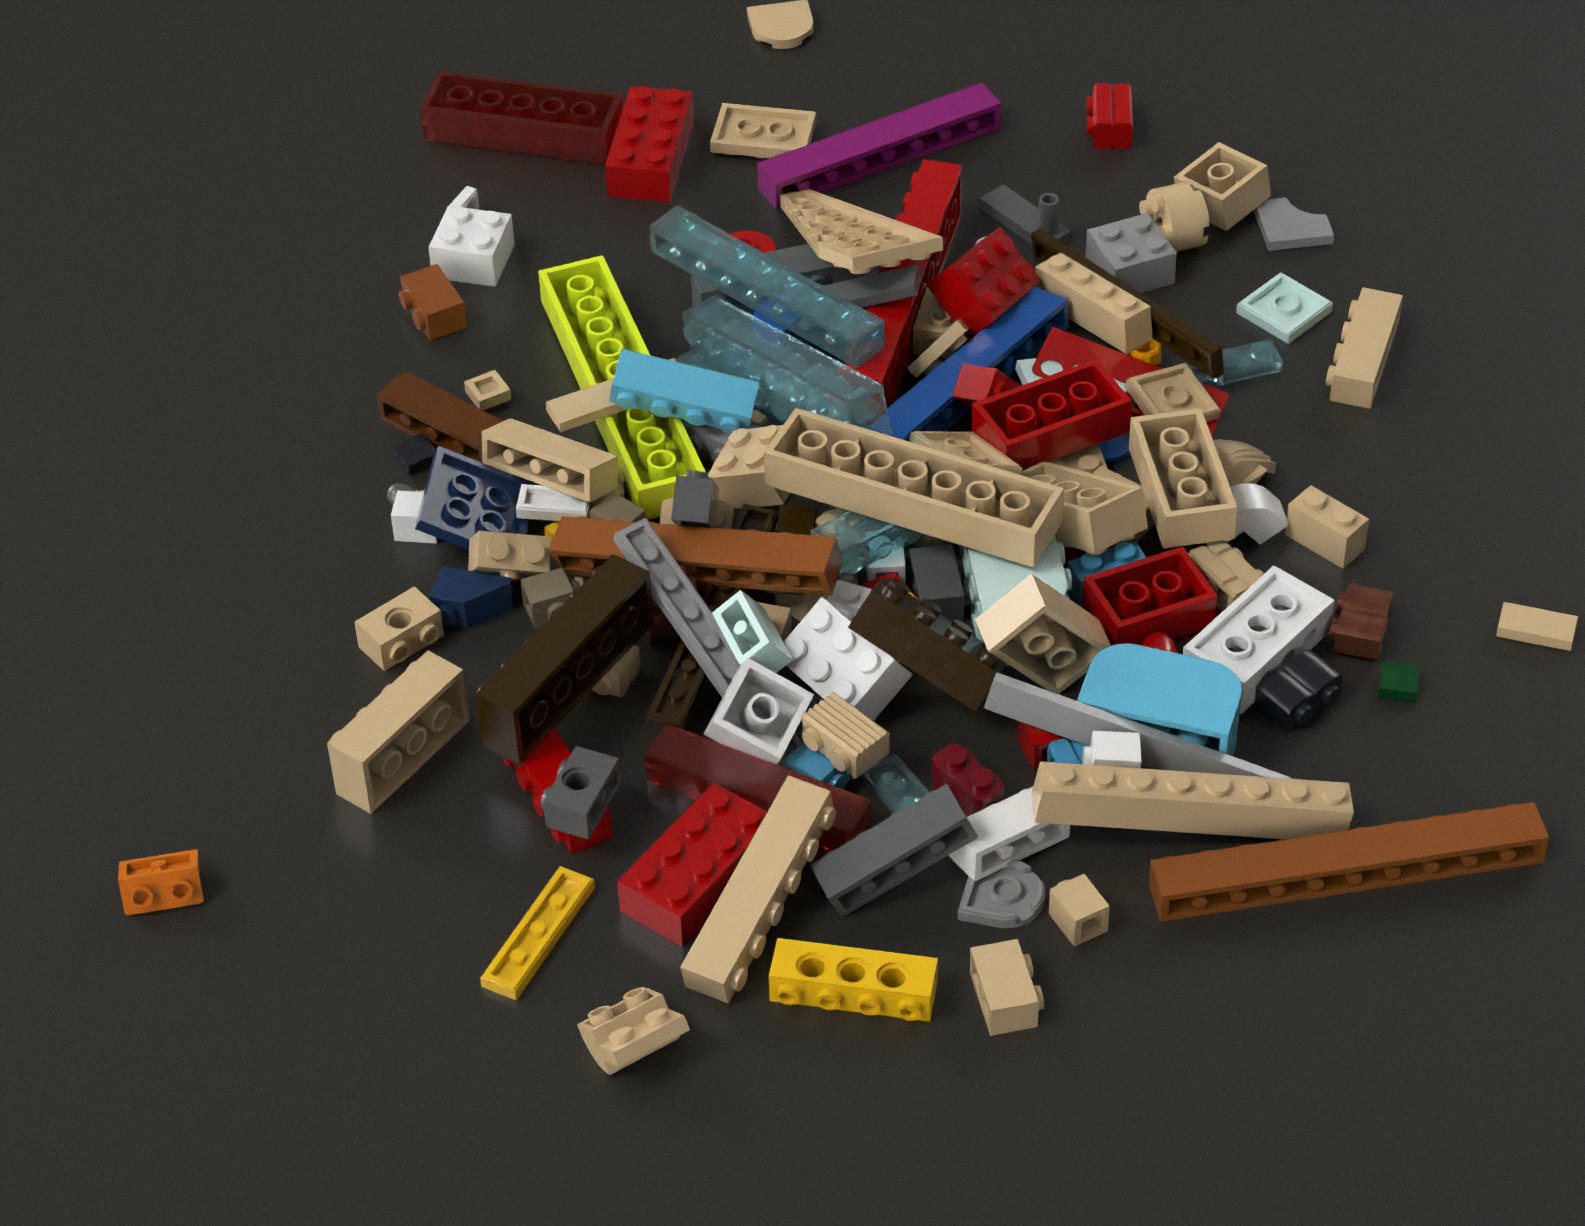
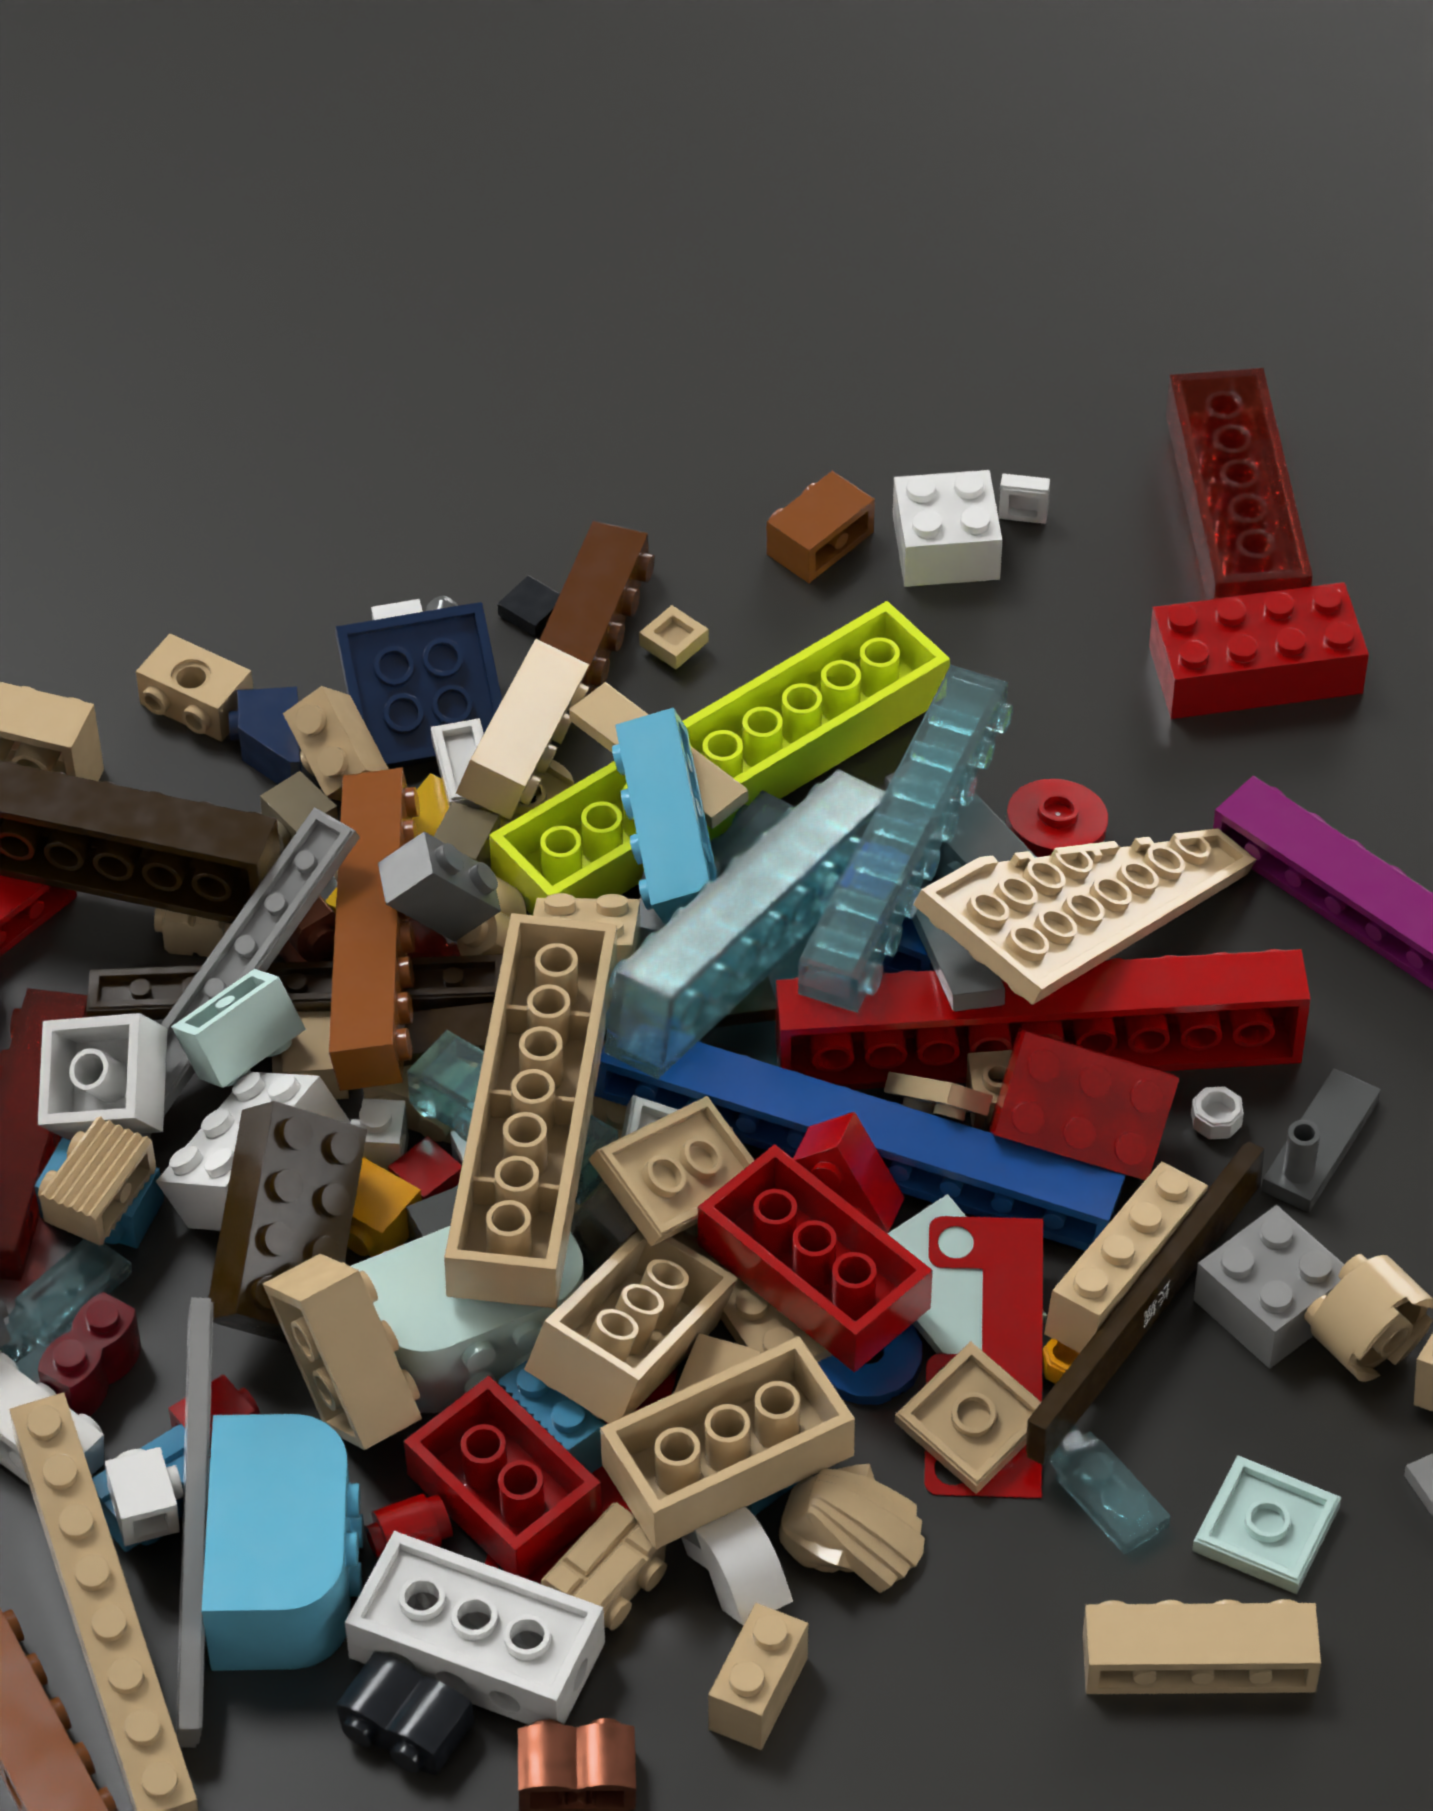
camera: 70 degrees right, 5 degrees up
(761, 130) = (1360, 771): tan plate -> none

